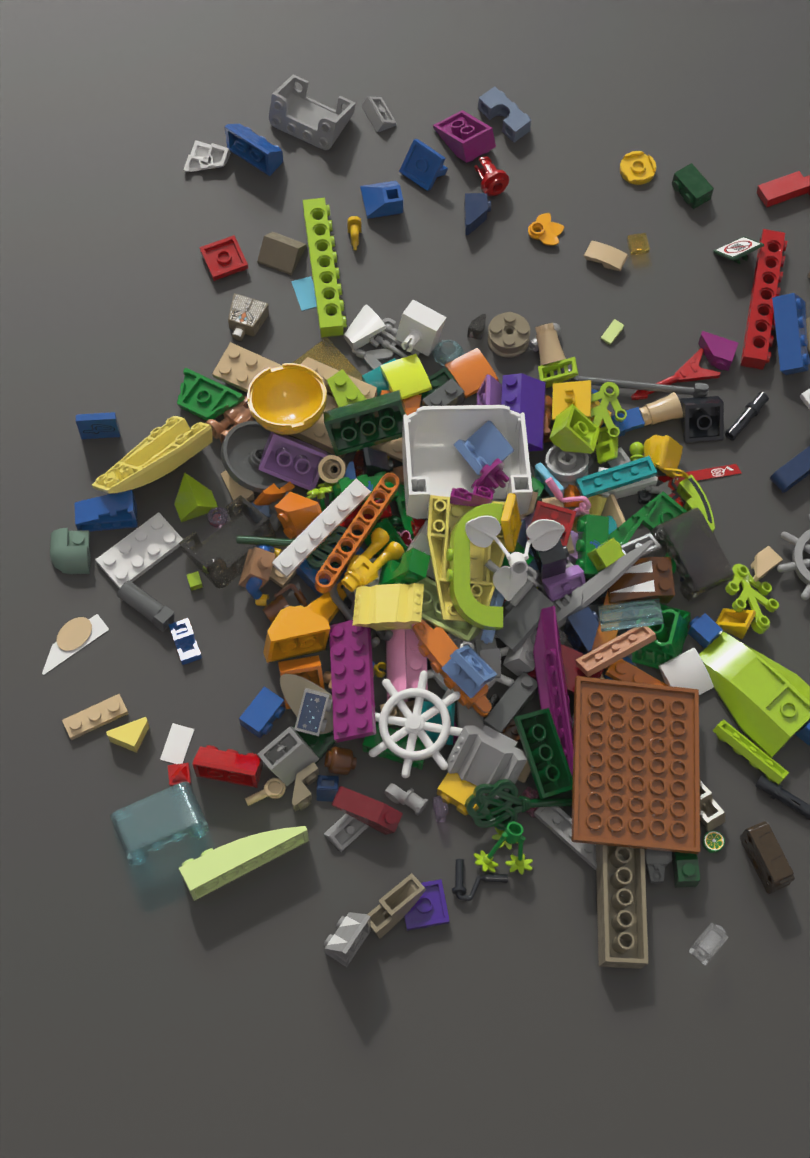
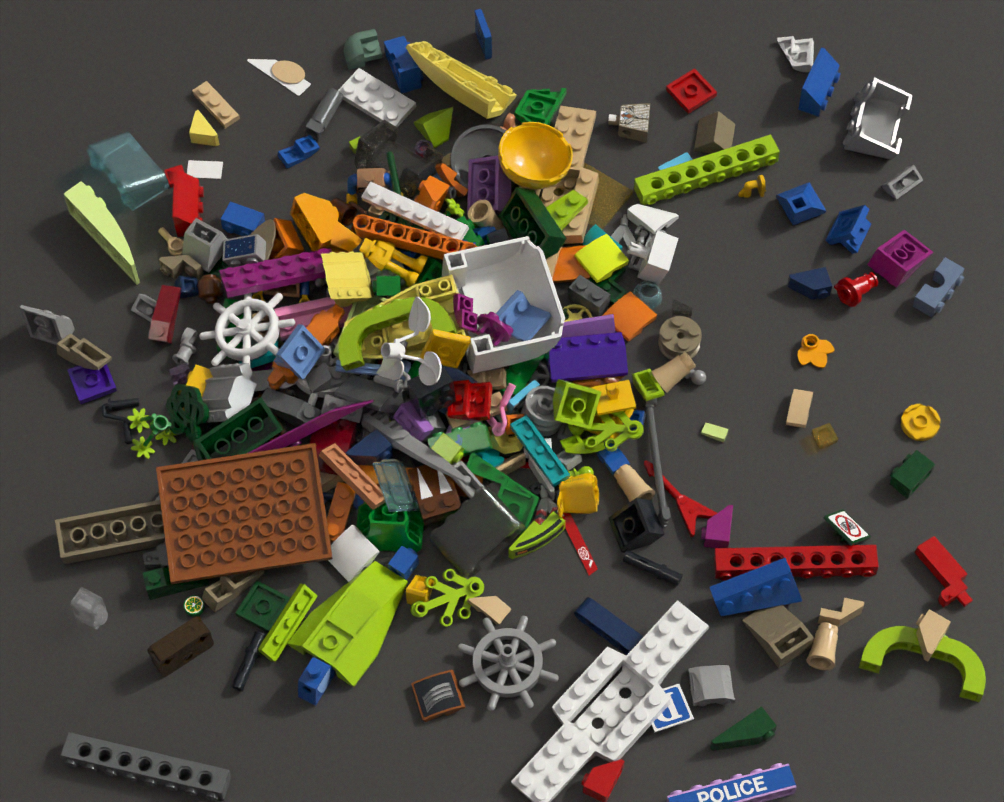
camera: 80 degrees right, 5 degrees down
(728, 772) = (262, 606): none -> dark green plate

